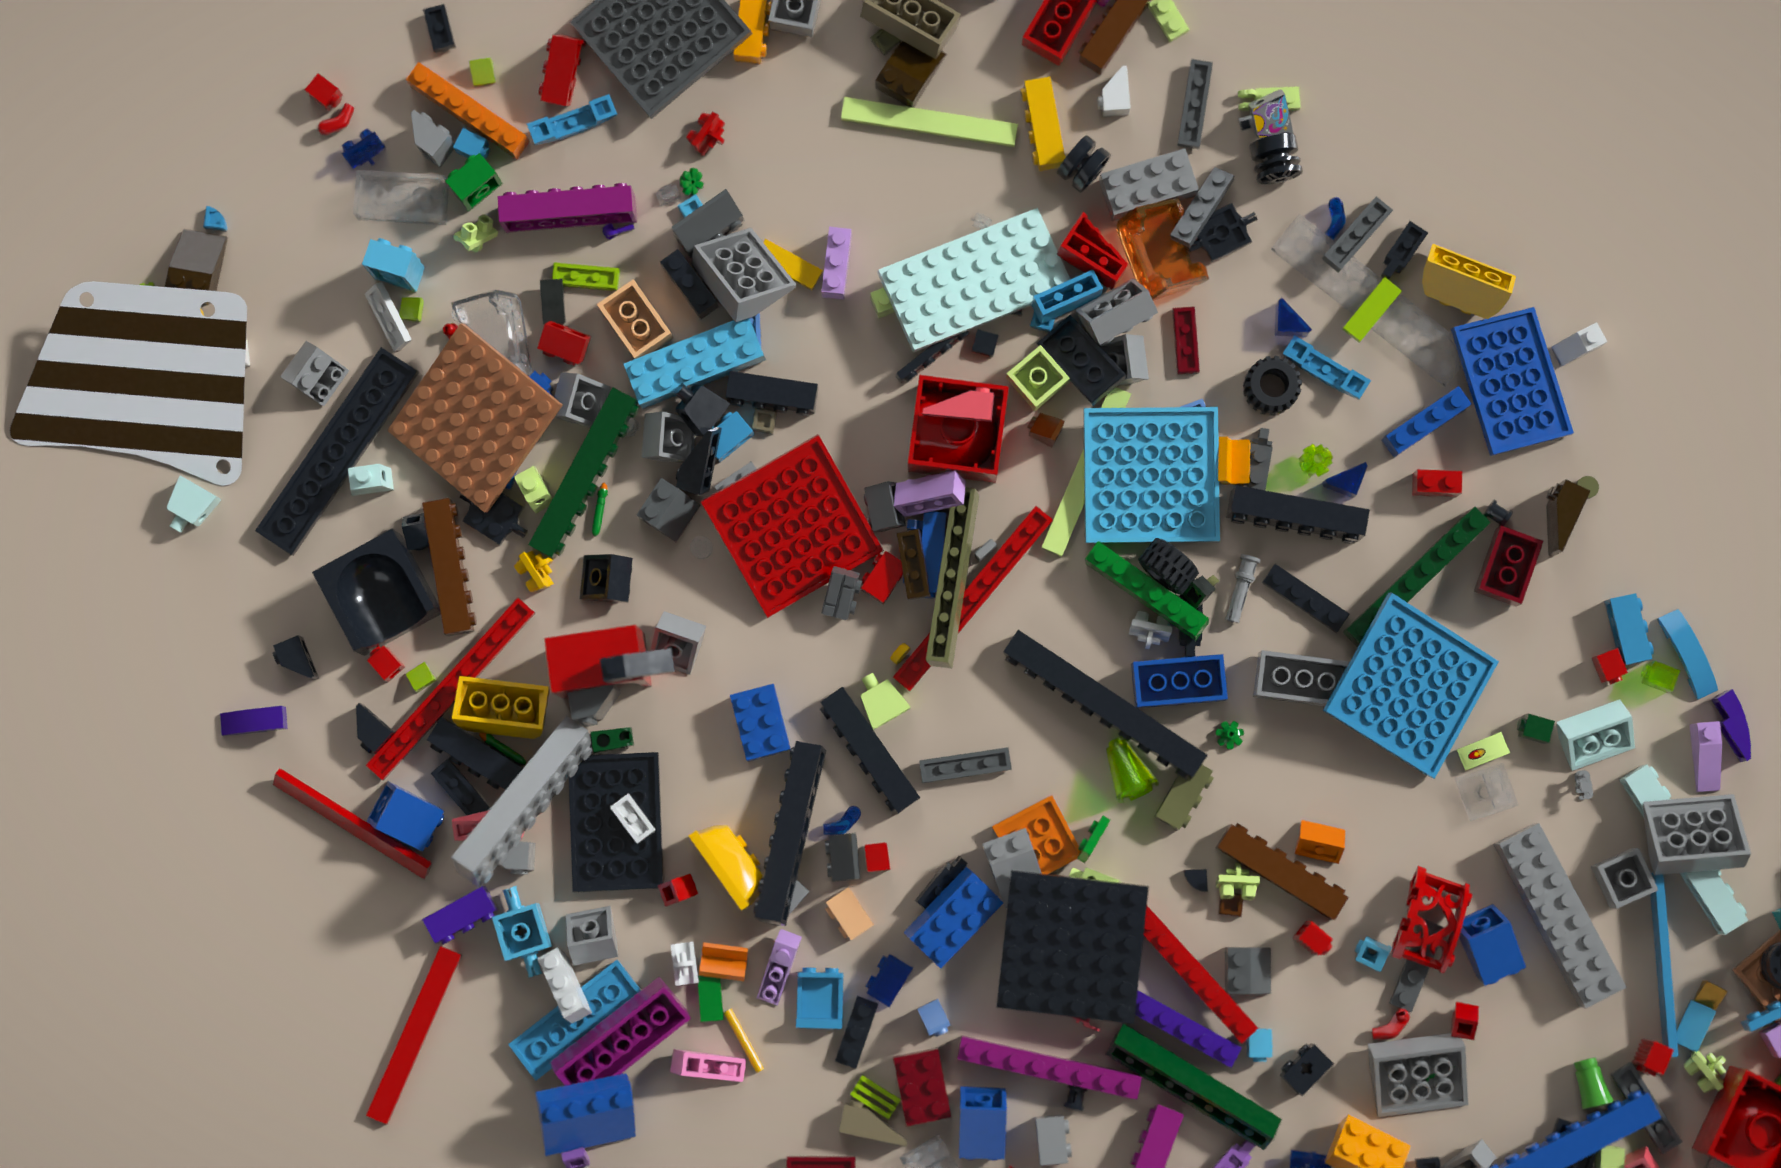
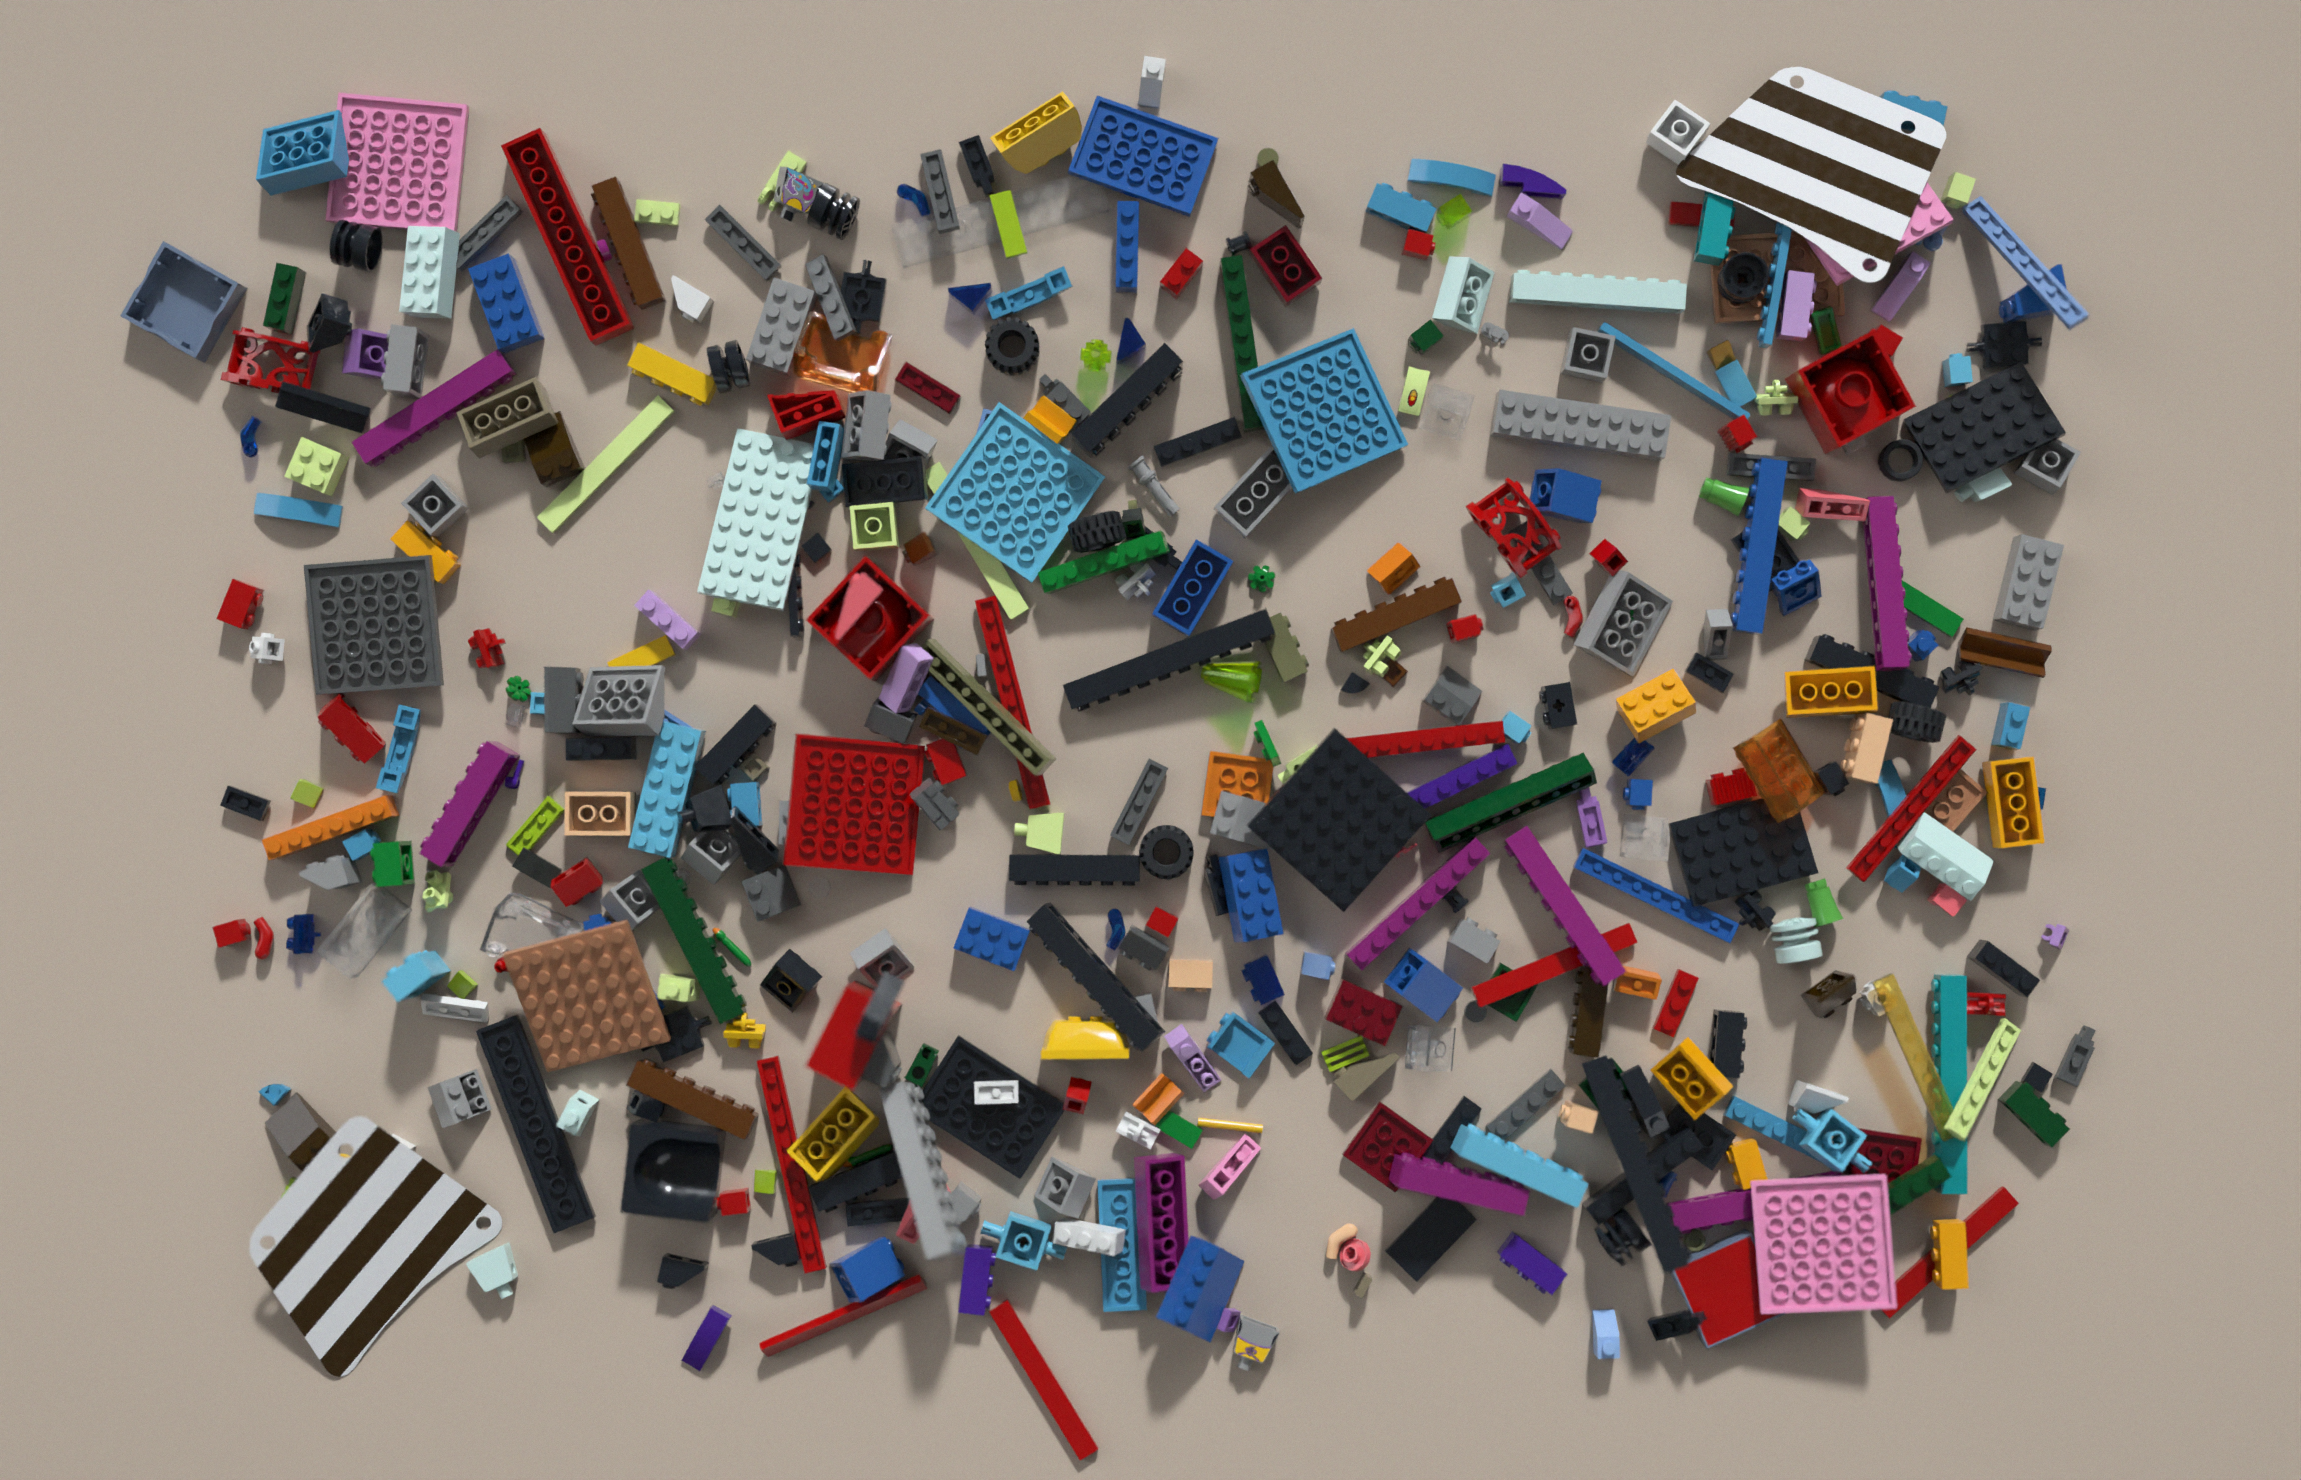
camera: 60 degrees left, 5 degrees up
(932, 799) = (1185, 852): none -> black tyre
(1695, 834) = (1593, 276): light grey slope -> none

